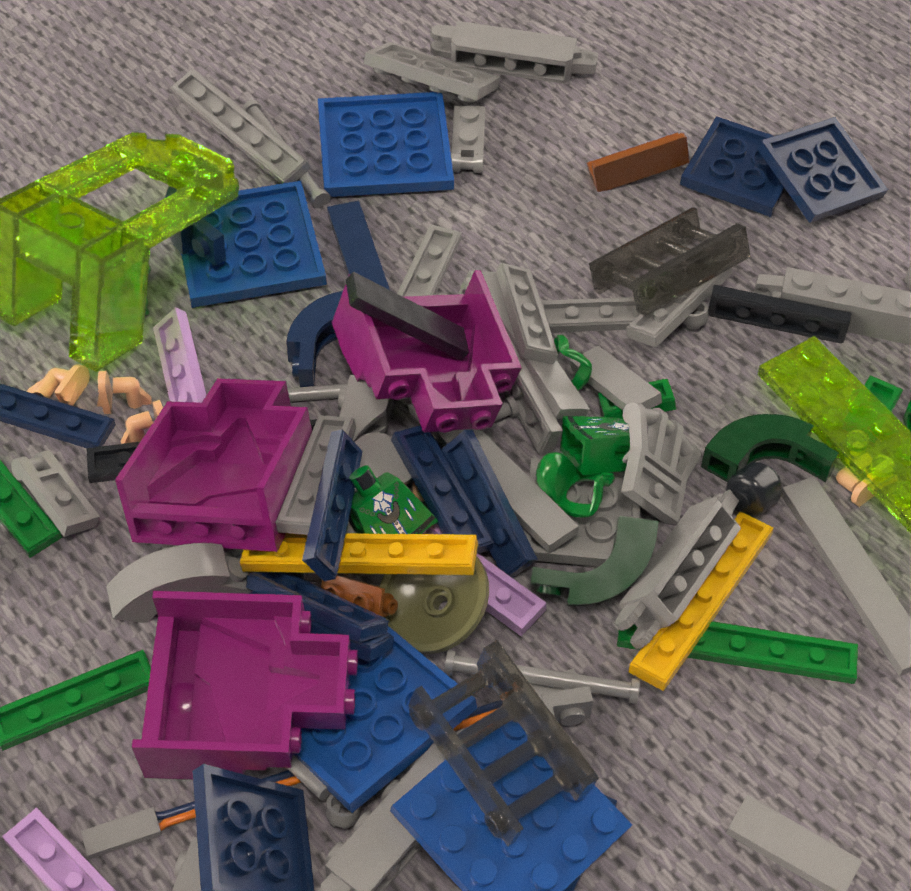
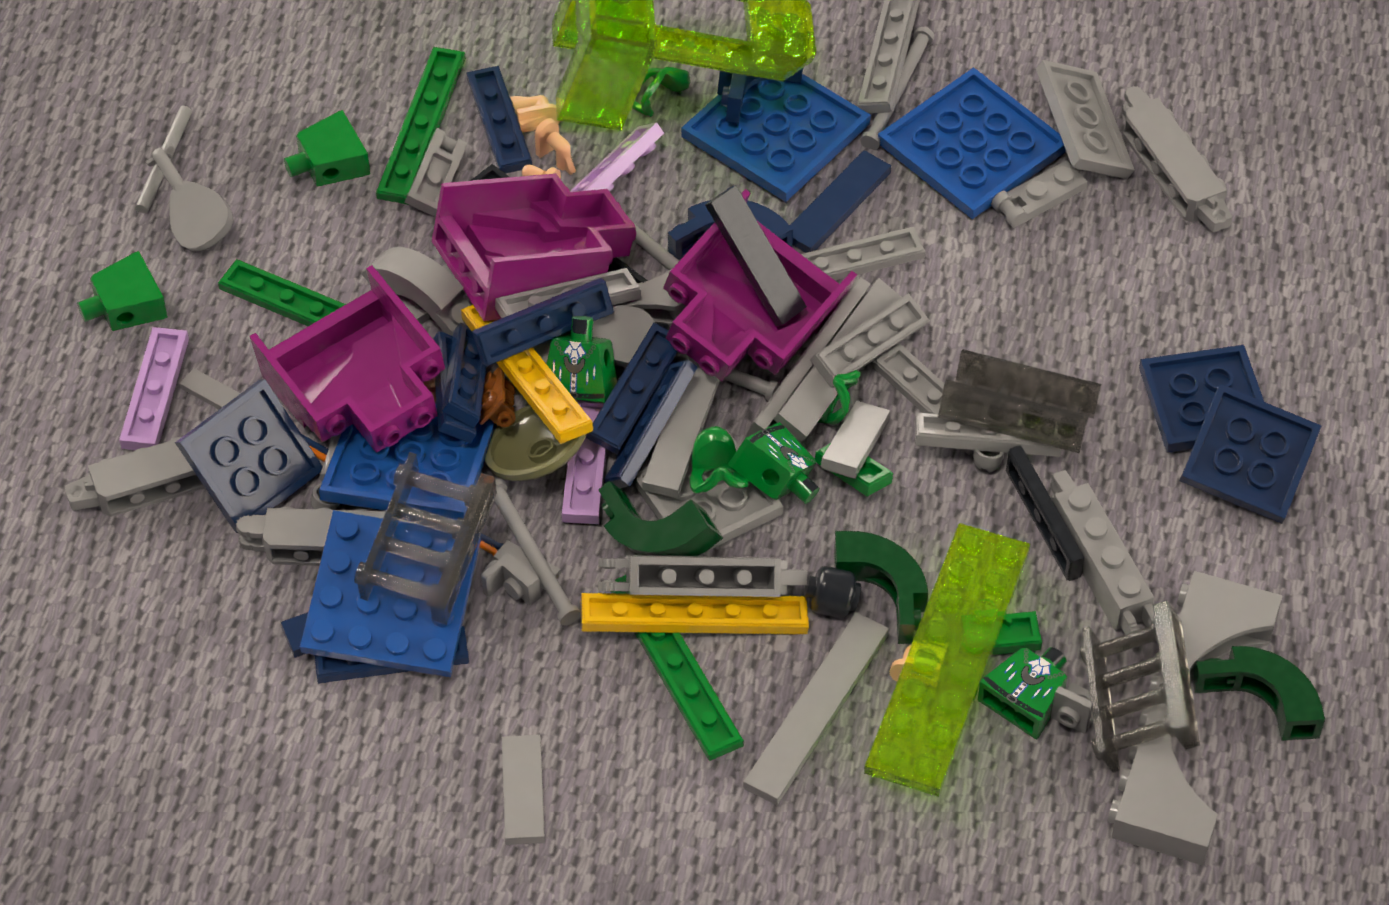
camera: 55 degrees right, 0 degrees up
(639, 162) = (1125, 320): dark orange panel -> none
(655, 481) = (763, 509): light grey plate -> none

